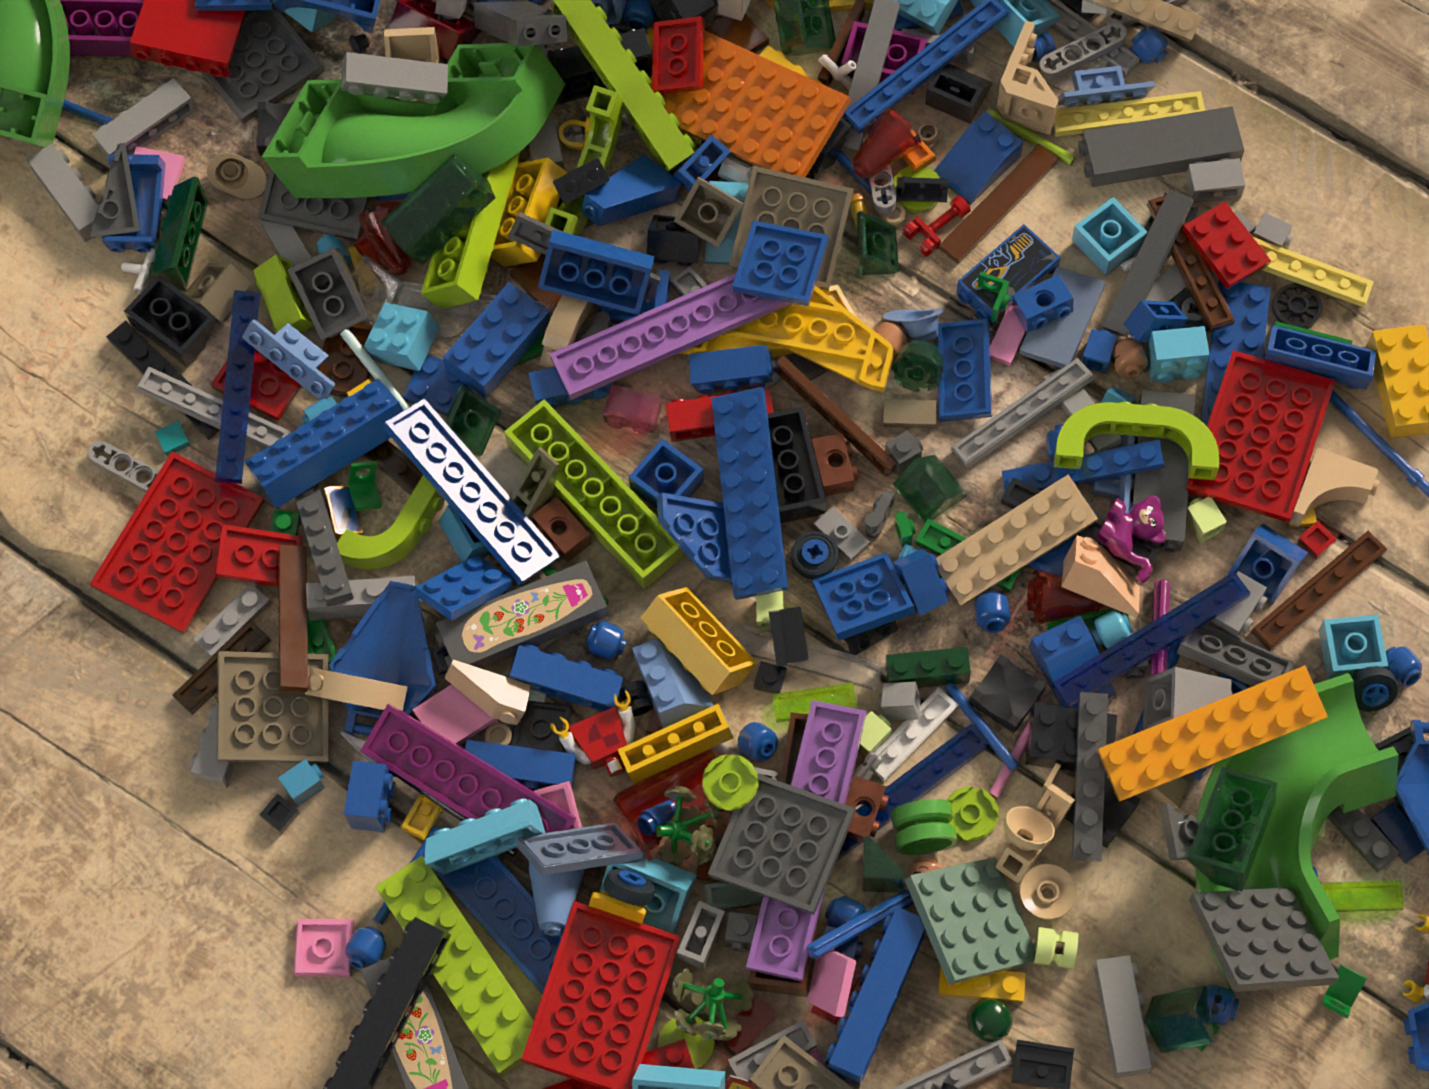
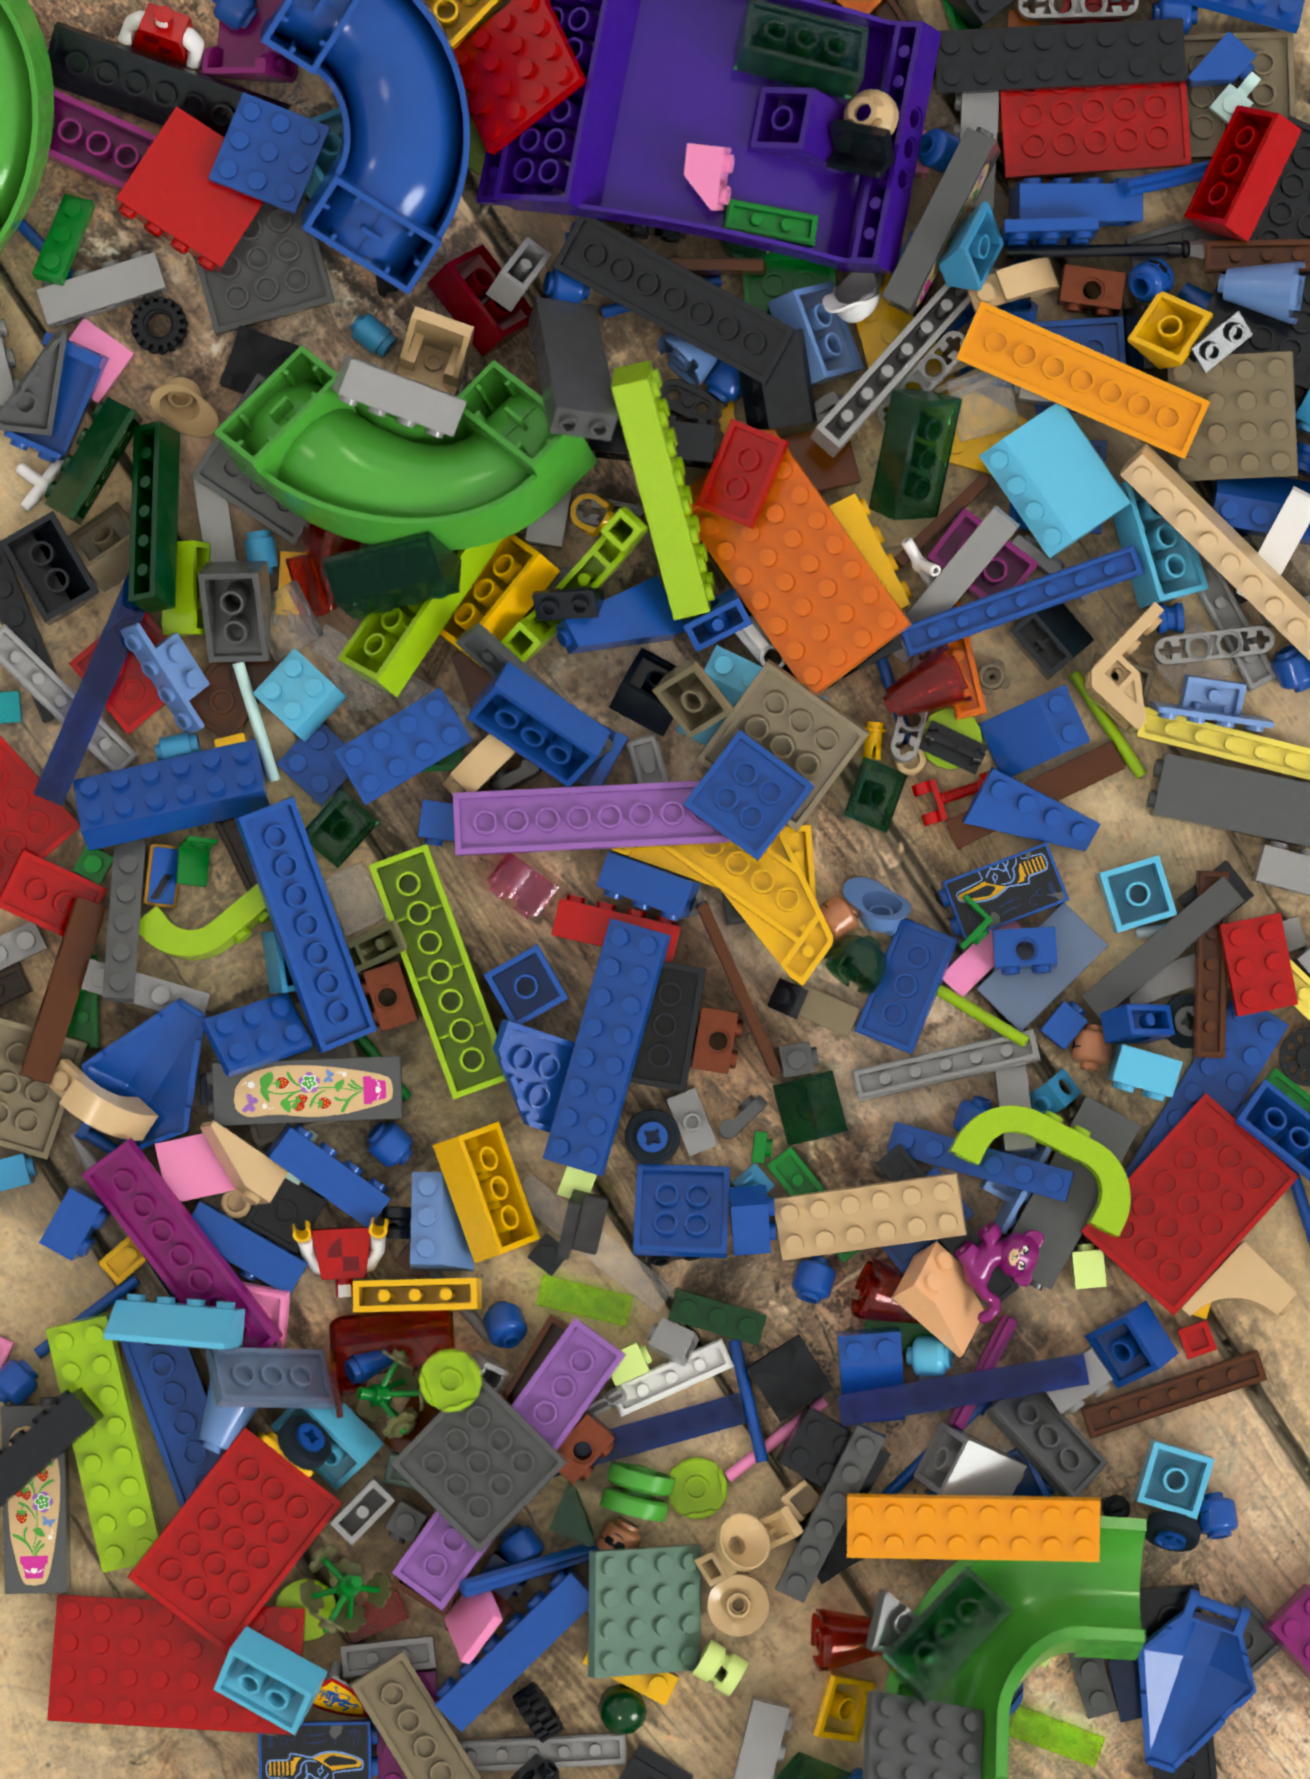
camera: 15 degrees right, 20 degrees up
(101, 97) = (63, 239): none -> green plate
(192, 119) = (140, 325): none -> black tyre
(239, 249) = (154, 517): none -> dark green brick
(876, 413) = (787, 998): none -> black plate
(919, 1044) = (537, 1712): none -> black tyre
(991, 212) = (1023, 811): none -> blue wing
(1033, 365) = (982, 1016): none -> lime bar
(1149, 880) = (839, 1639): none -> clear red cone
(1172, 941) = (842, 1707): none -> yellow slope

